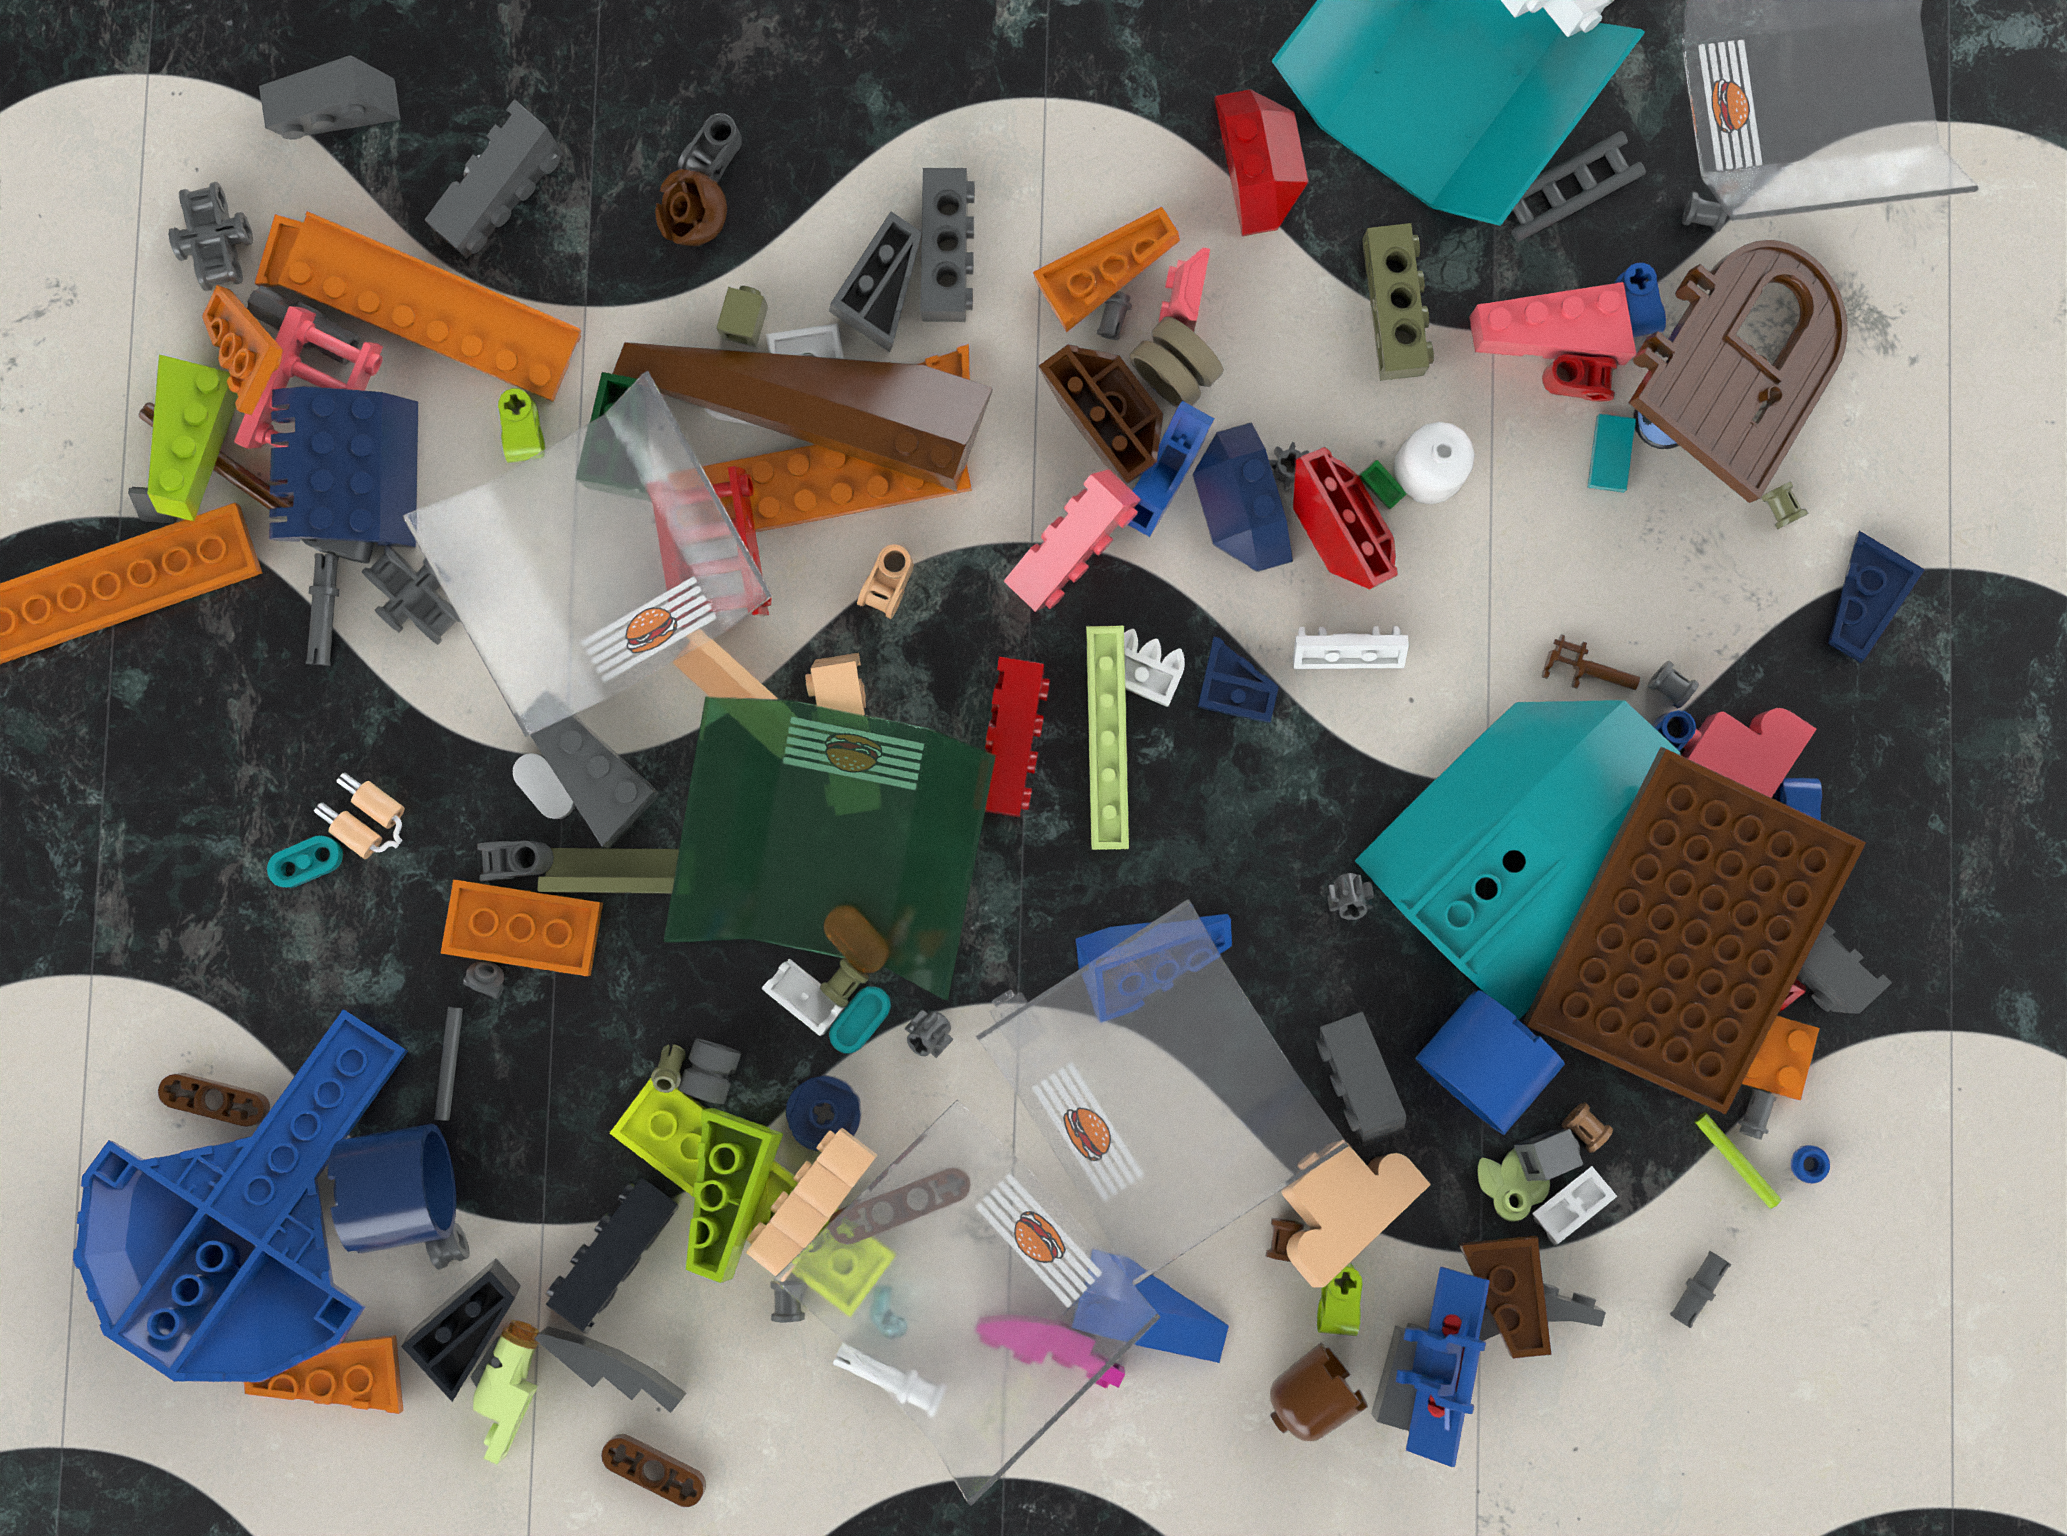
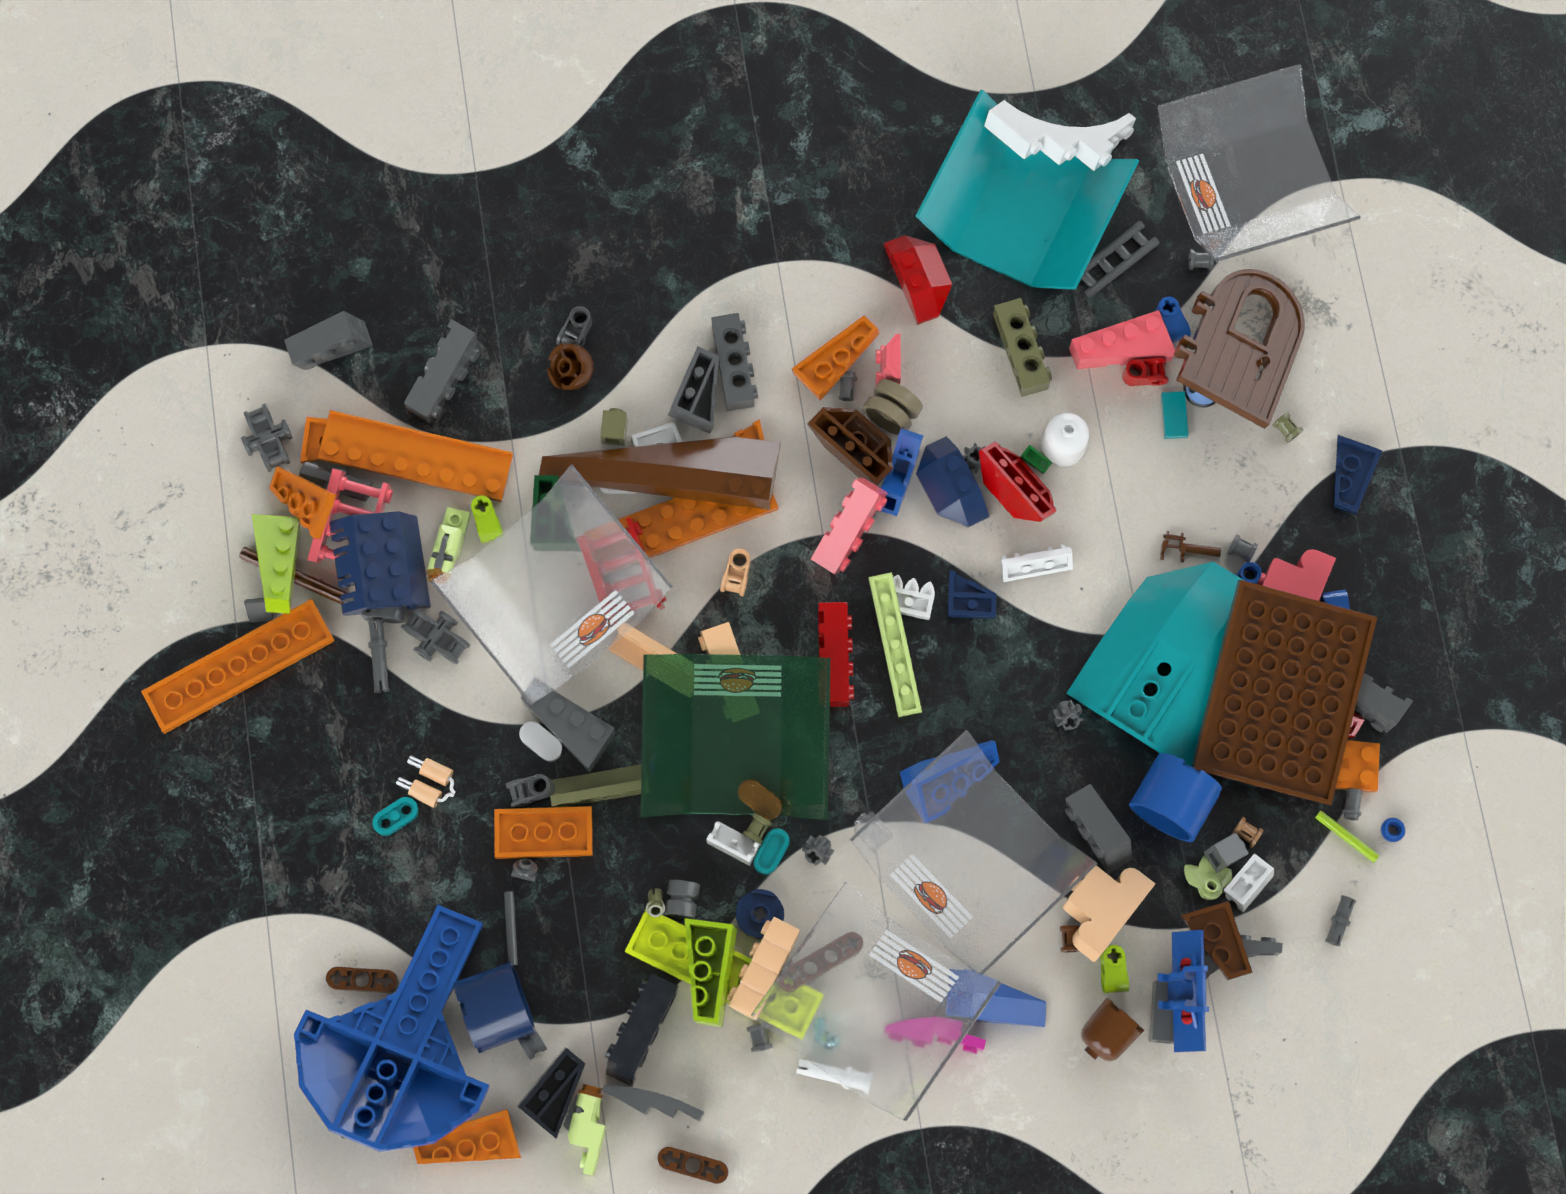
camera: 15 degrees left, 10 degrees down
(456, 453) = (448, 542): none -> yellowish green plate

